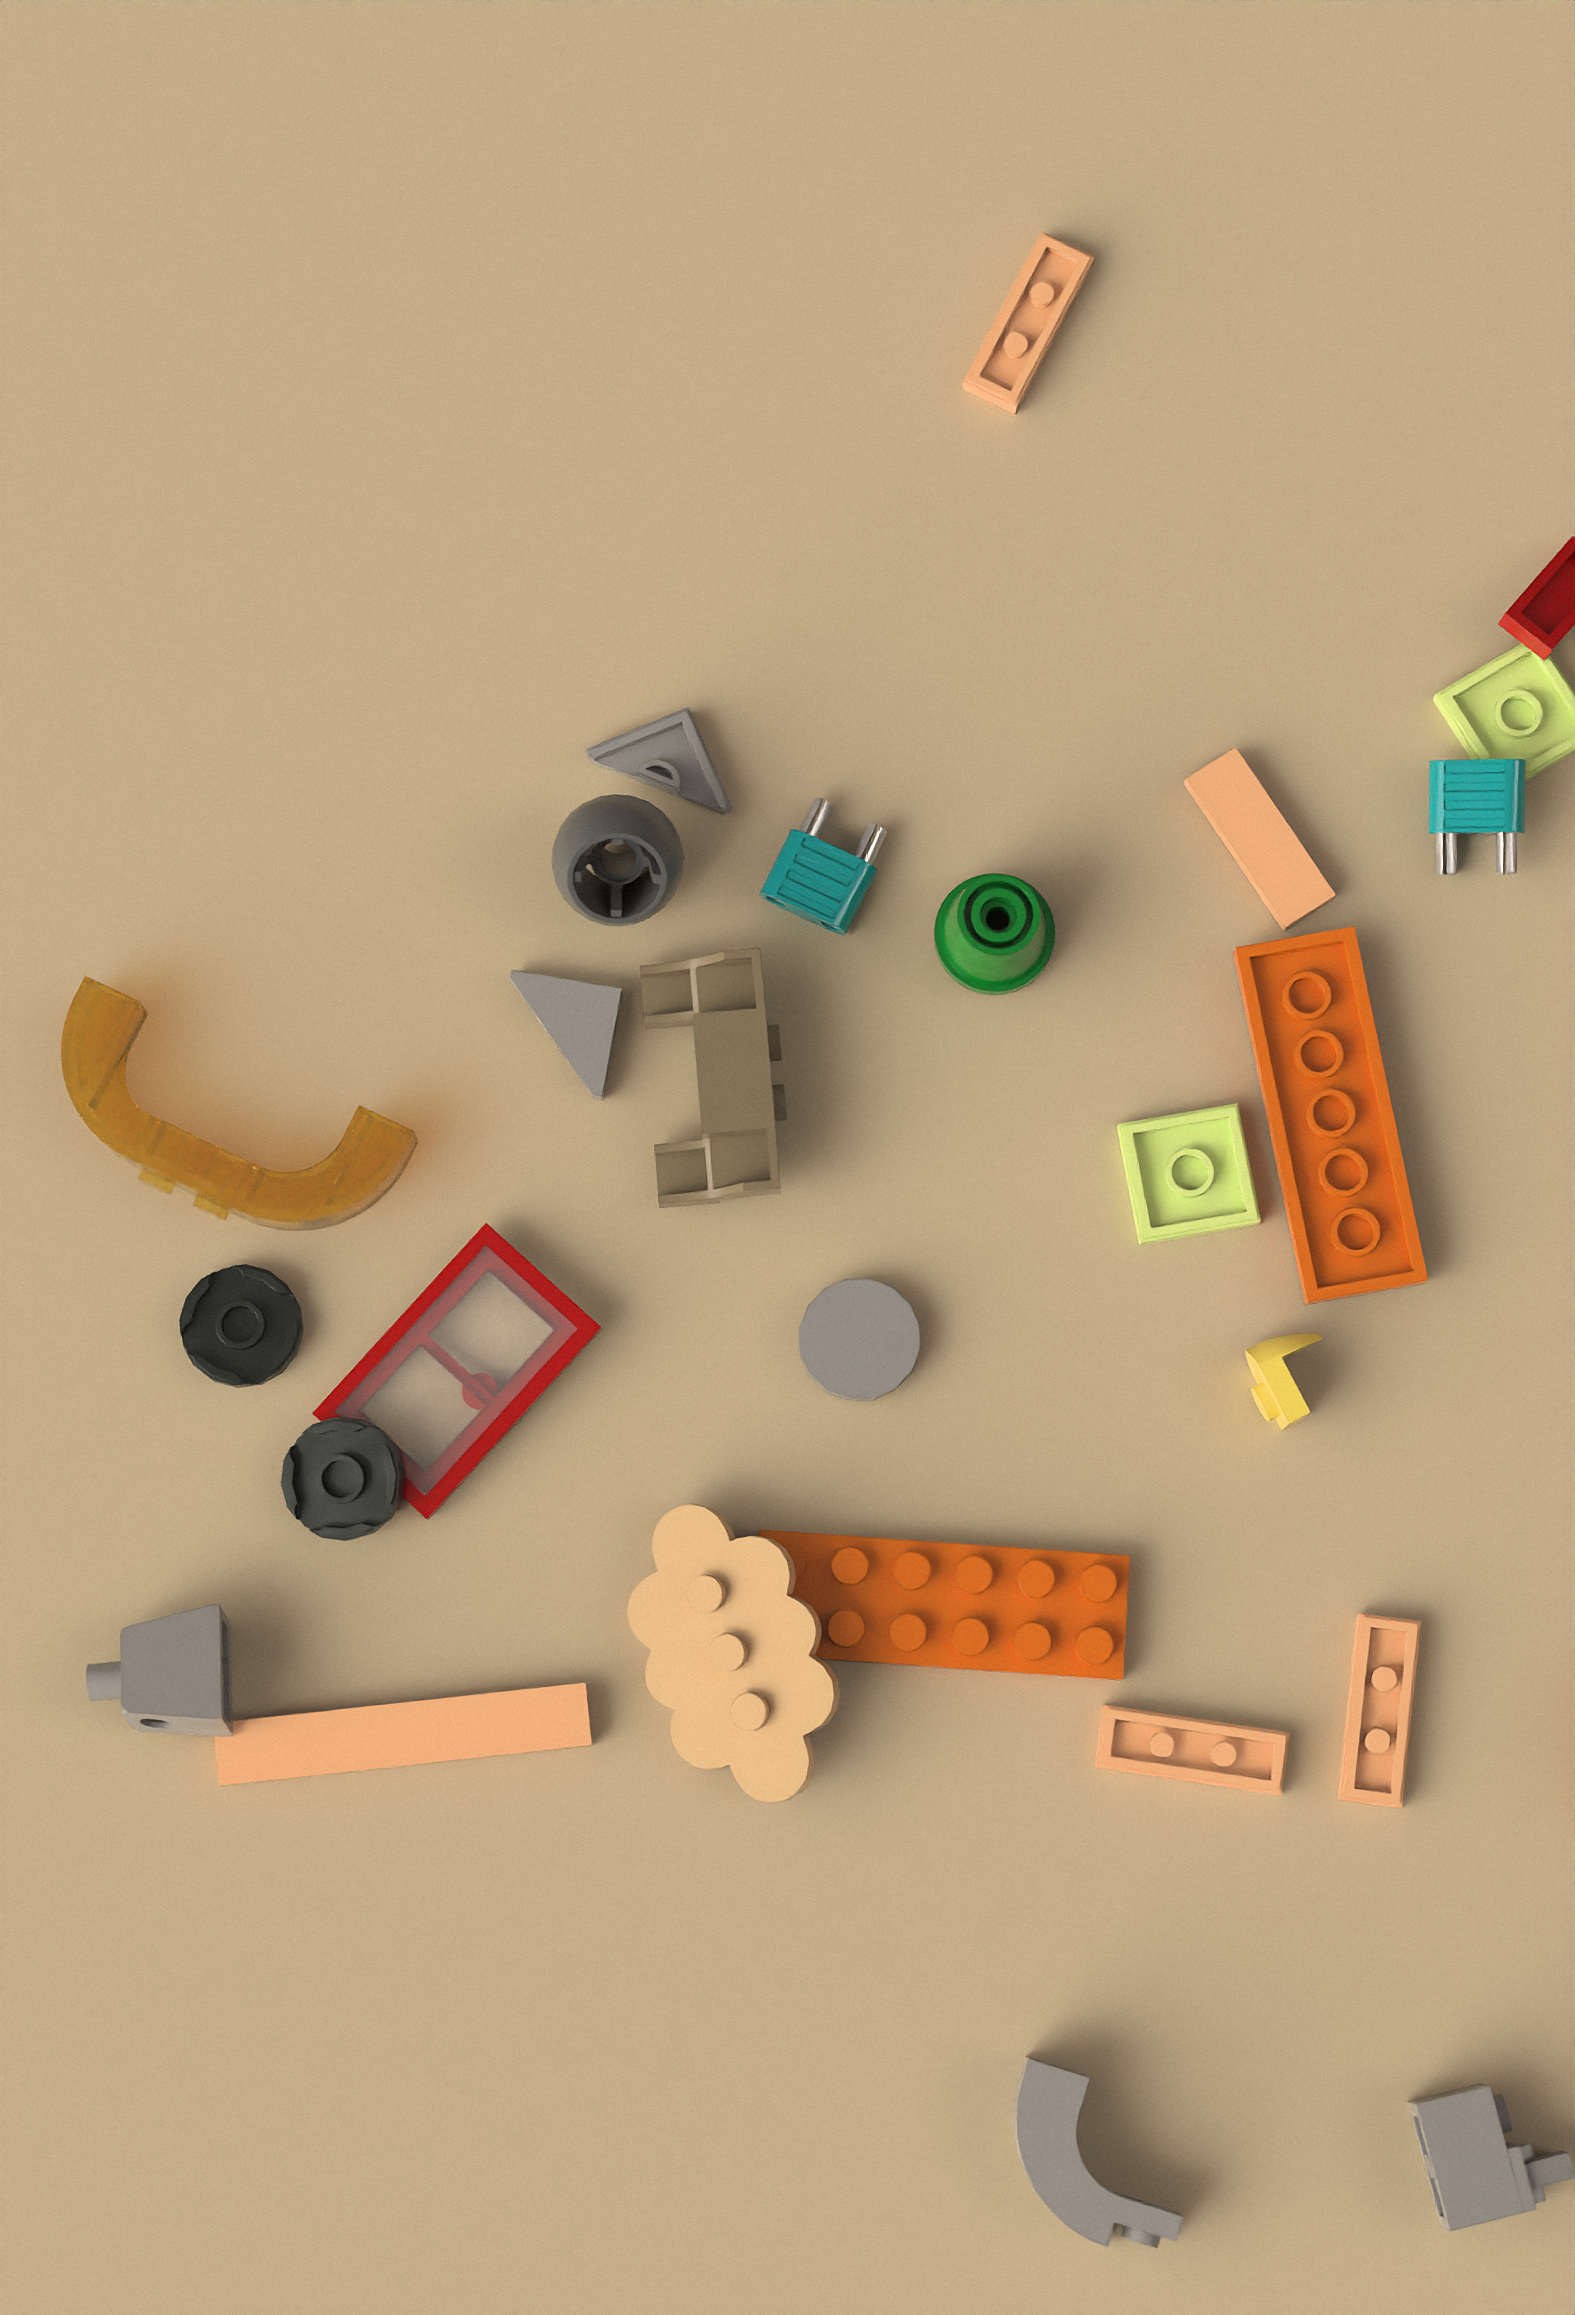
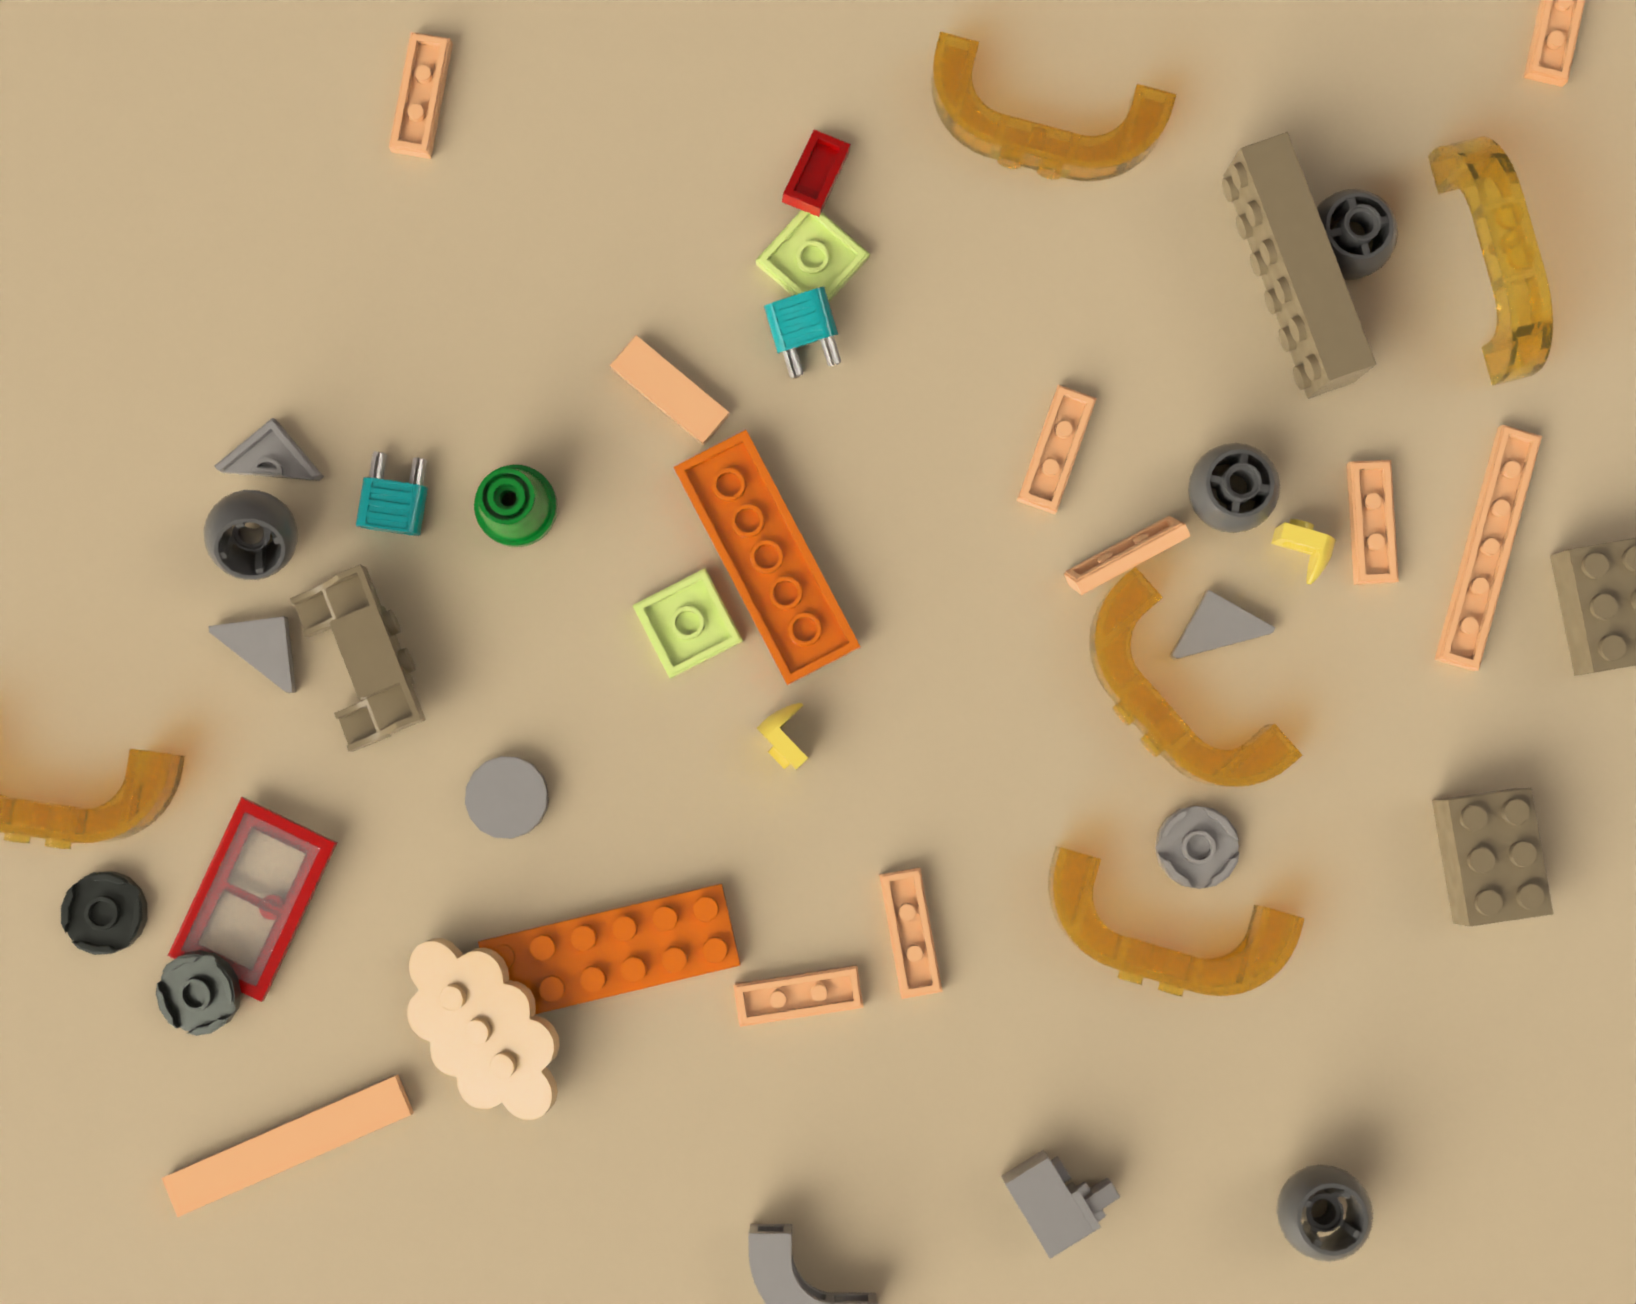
camera: 15 degrees left, 5 degrees up
(172, 1674) = (123, 1156): light grey torso -> none

